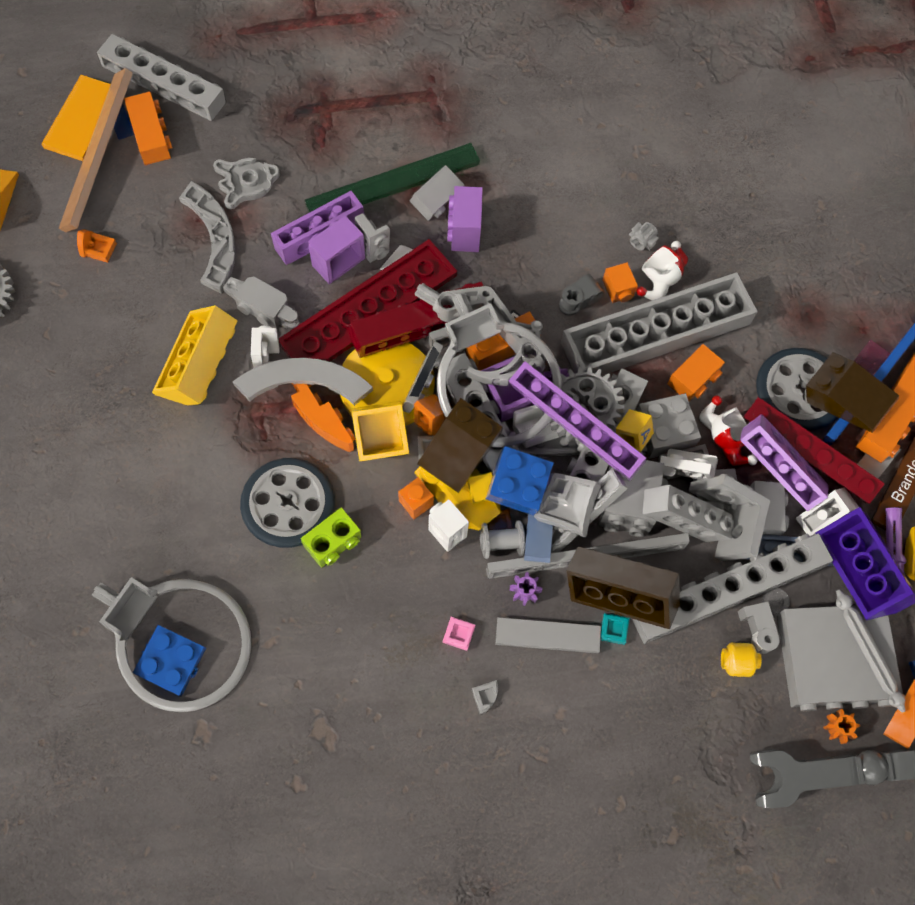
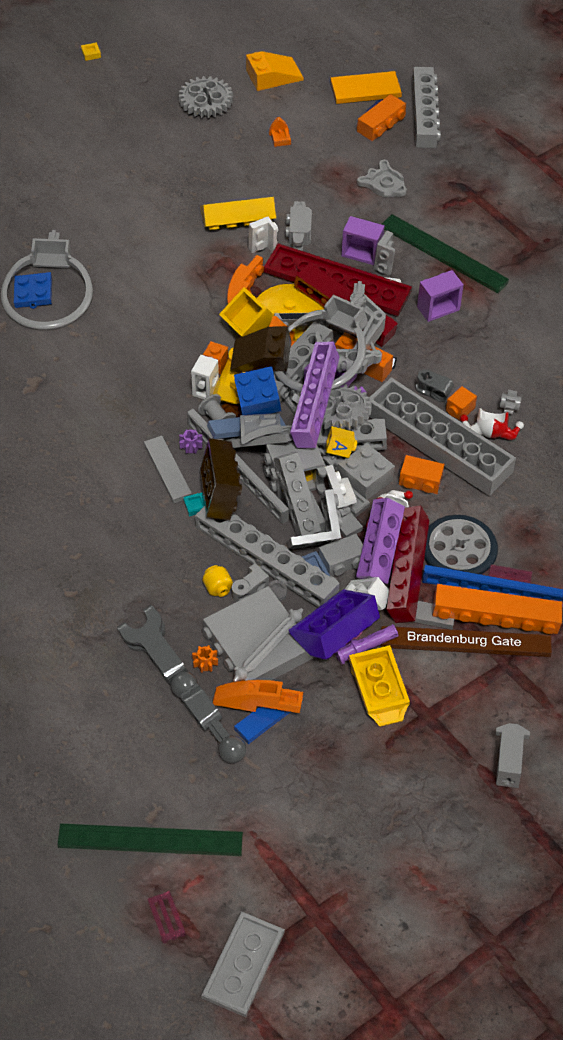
camera: 65 degrees right, 15 degrees down
(95, 151) = (346, 100): medium nougat tile -> none
(221, 235) = (333, 188): light grey tile -> none
(261, 482) = (167, 318): light grey wedge -> none
(293, 238) = (400, 230): medium lavender brick -> none
(303, 372) = (259, 258): light grey tile -> none
(326, 533) = (160, 328): lime brick -> none
(435, 193) = (460, 269): light grey brick -> none
(459, 633) = (139, 422): bright pink tile -> none
(485, 696) = (105, 453): light grey tile -> none
(850, 393) = (467, 561): dark brown slope -> none

